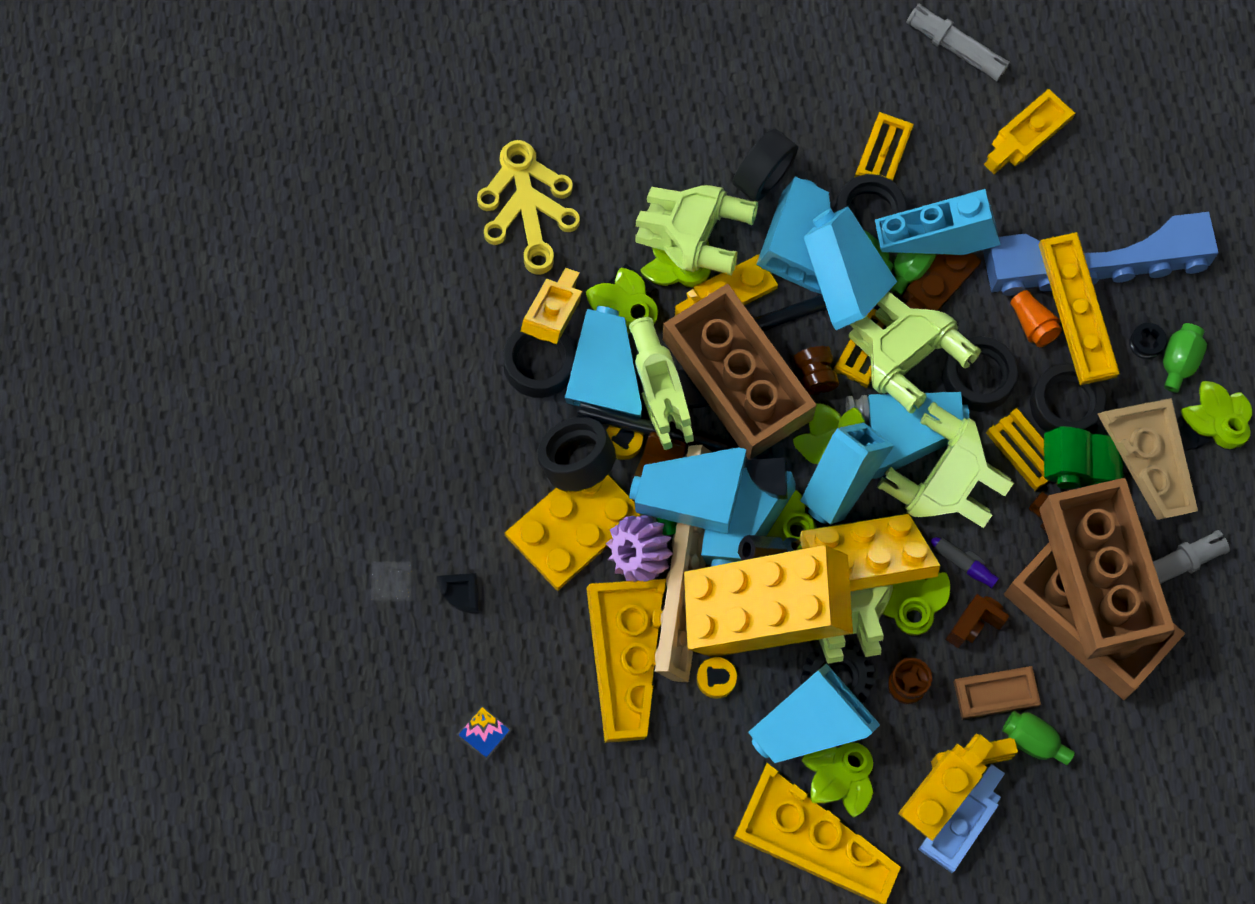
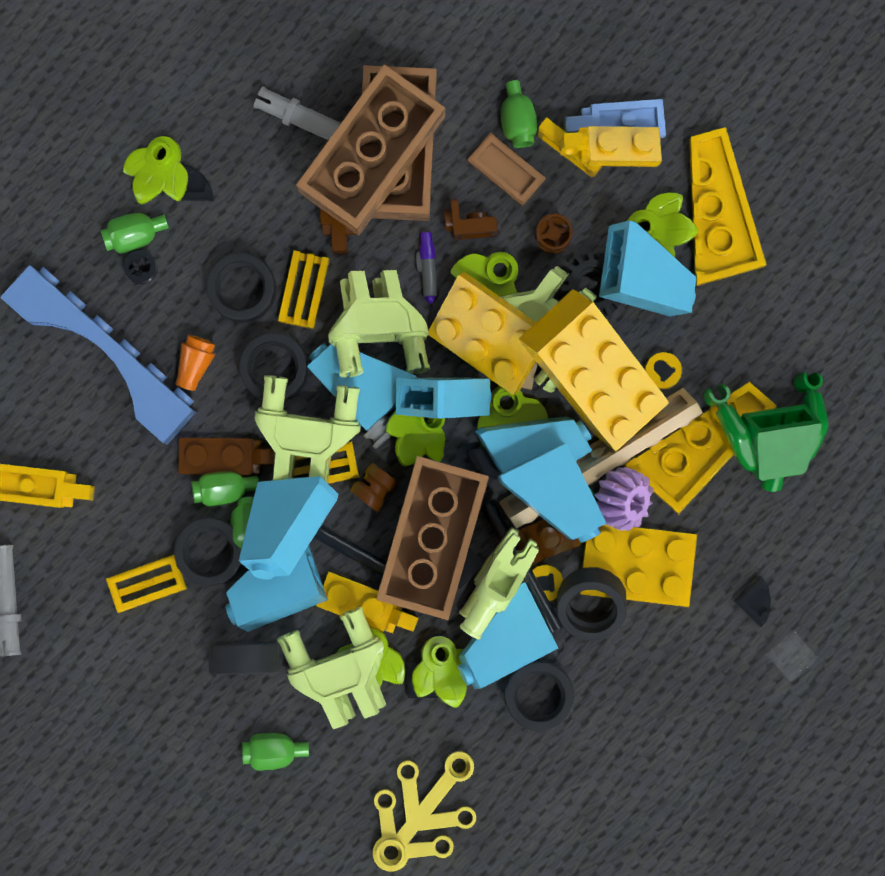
camera: 125 degrees left, 15 degrees up
(484, 733) = (840, 496): tile -> none
(553, 308) = (497, 716): yellow hinge -> none
(578, 710) = (775, 440): none -> green torso
(673, 135) = (272, 751): none -> bright green plant
(760, 546) = (550, 401): black bar -> none
(769, 476) = (499, 446): black tile -> none
(945, 227) = (188, 483): medium azure slope -> none
(1078, 308) = (166, 332): yellow tile -> none
(1080, 458) = (283, 239): green brick -> none
(1154, 454) = (235, 192): tan wing -> none

